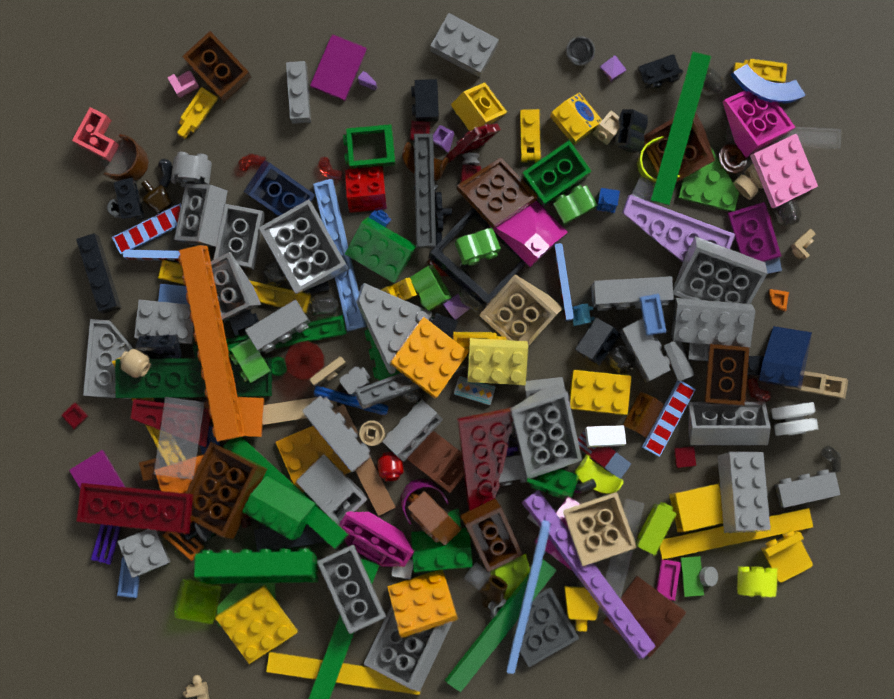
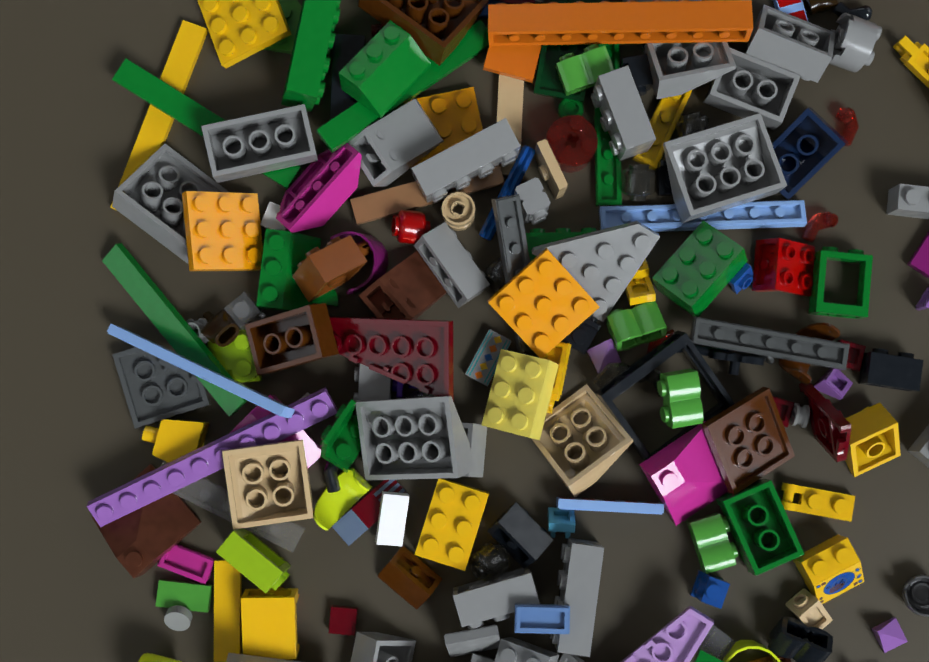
camera: 100 degrees right, 0 degrees up
(668, 418) = (399, 609): tile -> none

